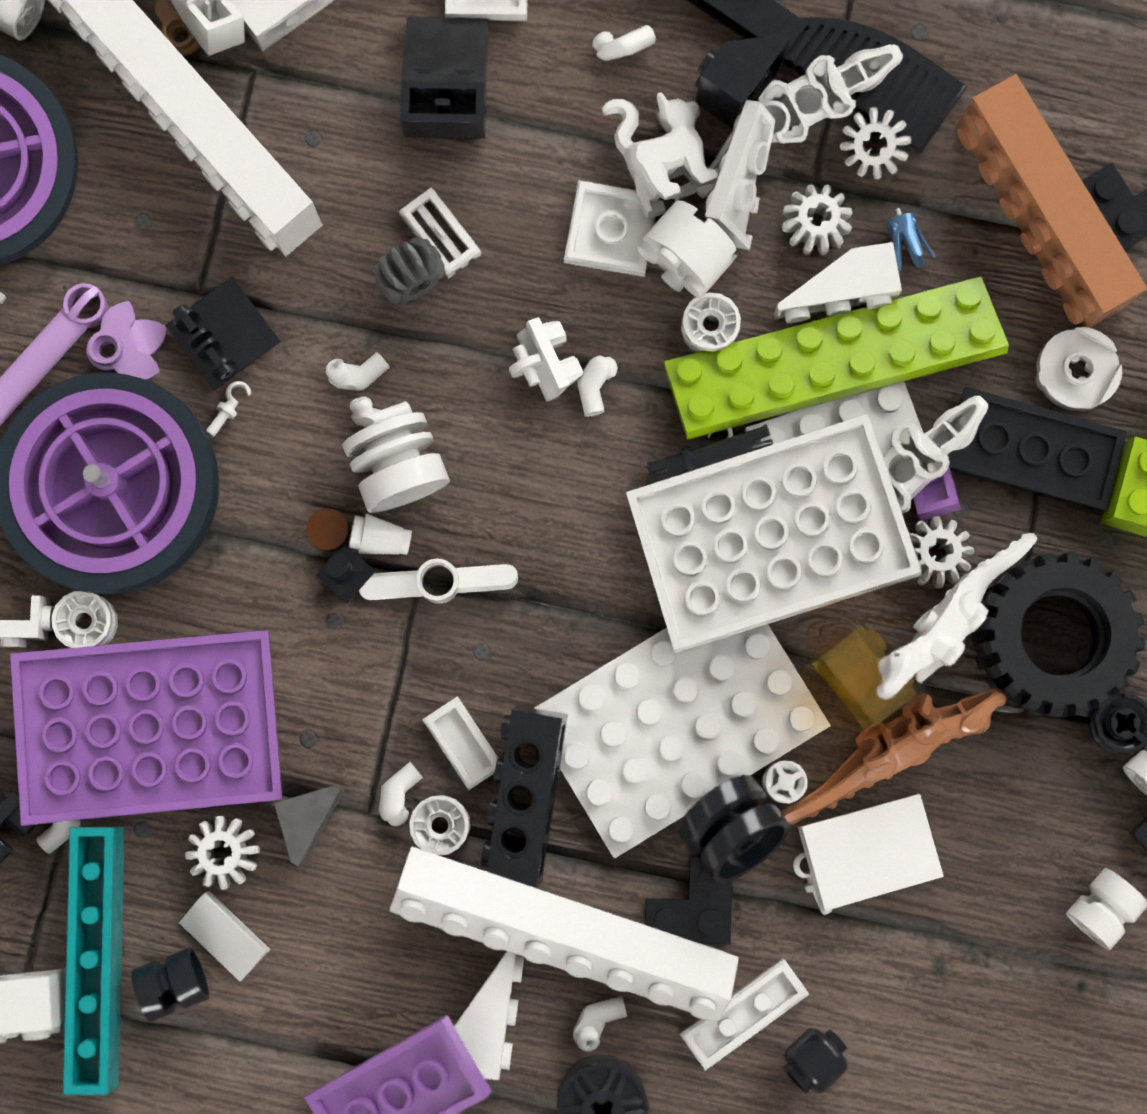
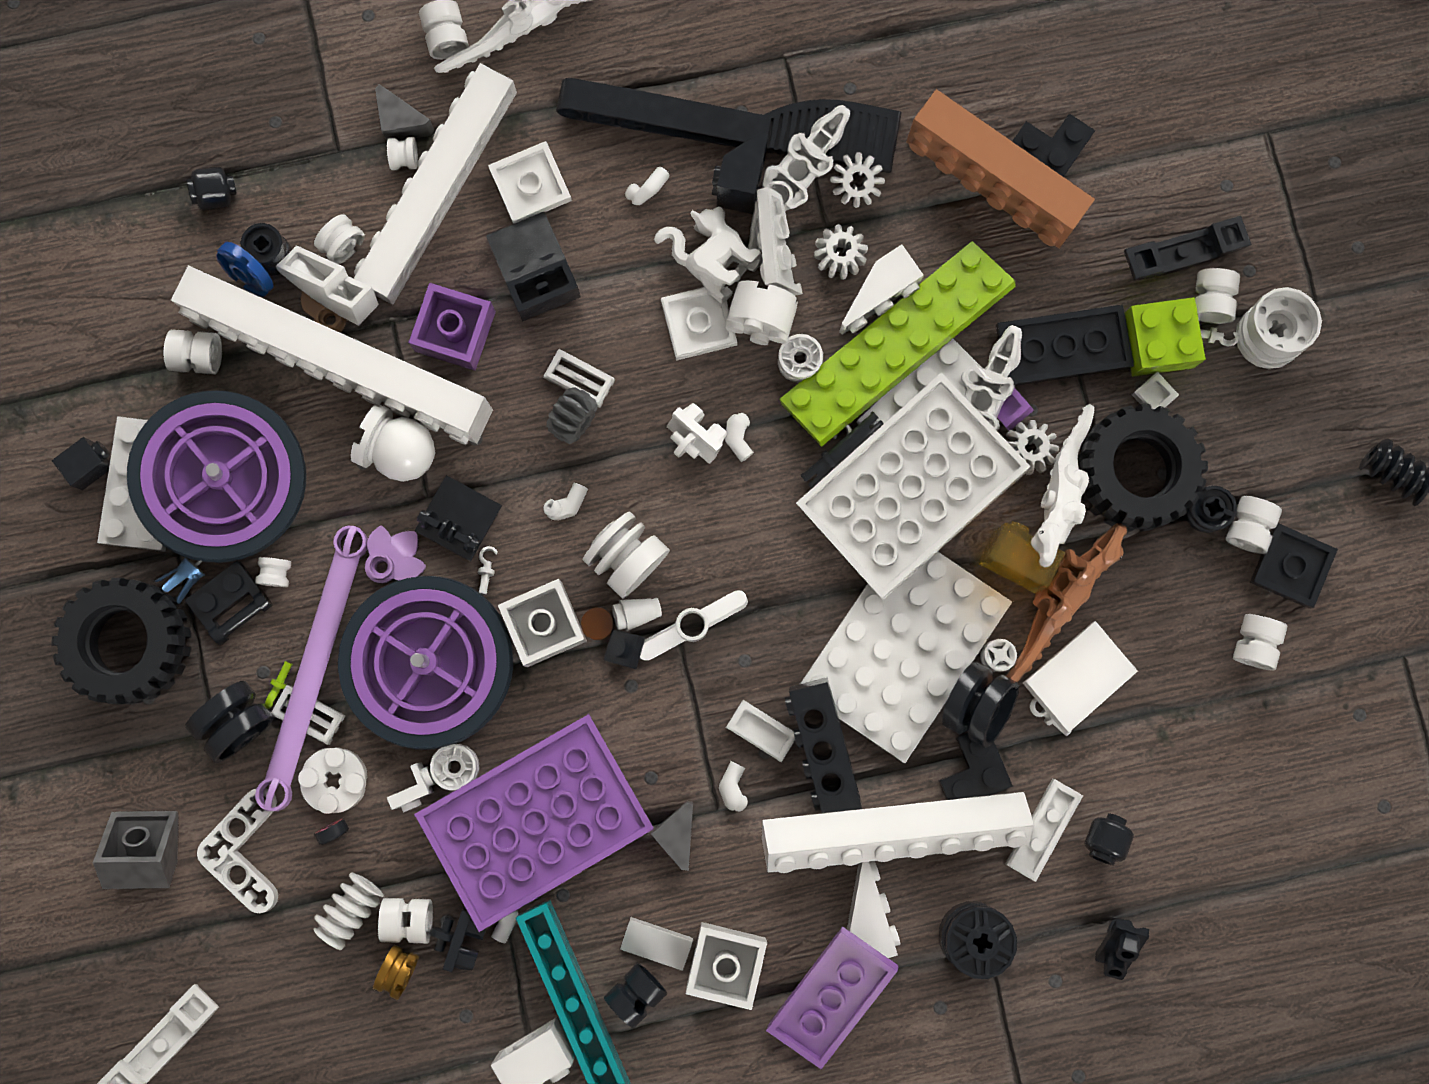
camera: 25 degrees left, 0 degrees up
(186, 216) = (397, 446): none -> white tile
(213, 841) = (639, 888): white gear -> none
(262, 499) = (542, 623): none -> white brick
(291, 998) = (726, 966): none -> white brick
(317, 105) = (452, 326): none -> medium lavender brick
(365, 415) = (588, 530): white arm -> none
(424, 816) = (786, 798): white wheel -> none
(593, 1019) = (942, 882): white arm -> none
(906, 228) = (904, 231): flat silver piece -> none
(1101, 362) = (1056, 289): white plate -> none
(1119, 554) = (1155, 392): none -> white tile

